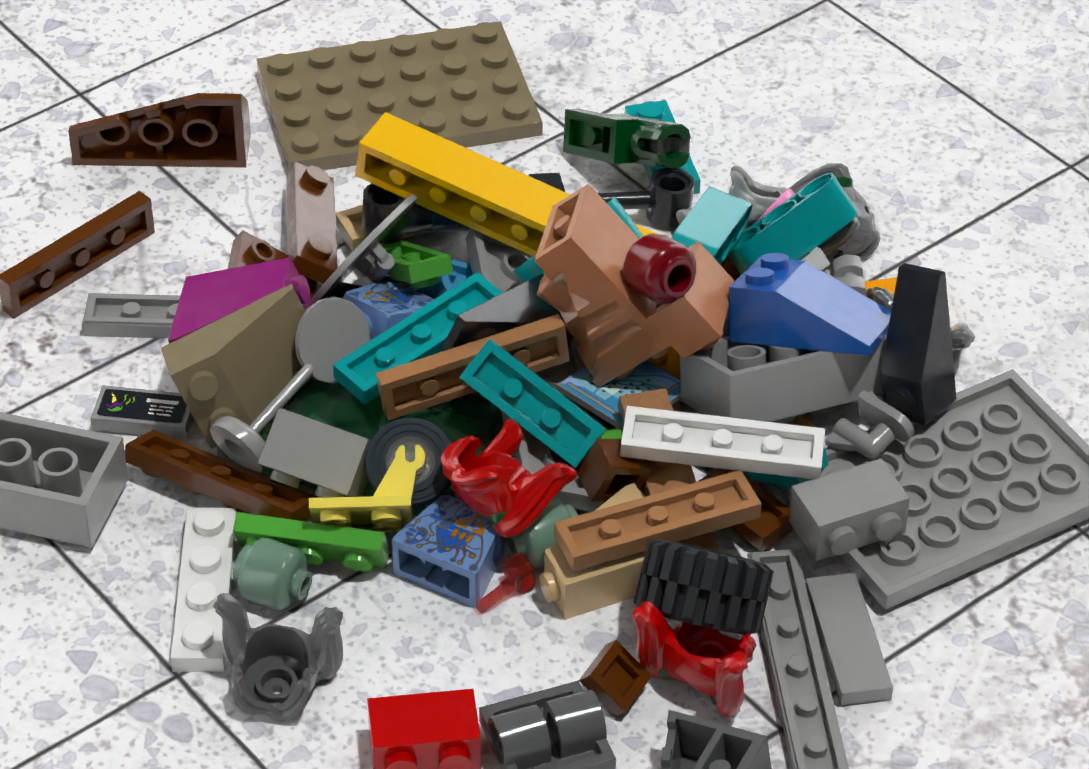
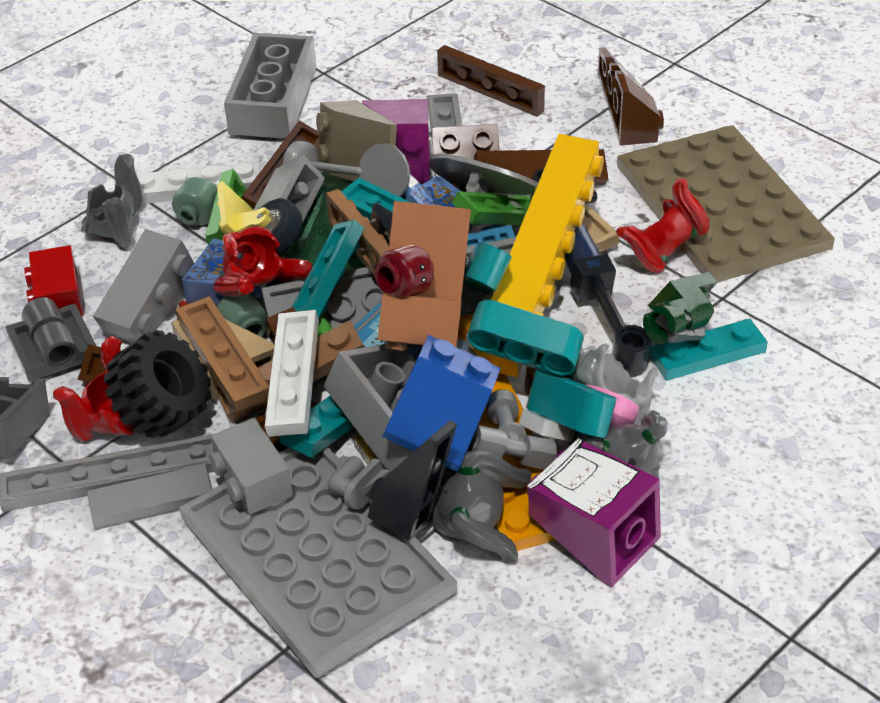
camera: 85 degrees right, 0 degrees up
(474, 119) = (681, 221): none -> red hair
(476, 618) = (145, 287): none -> light grey wedge
(941, 228) = (597, 509): none -> magenta slope

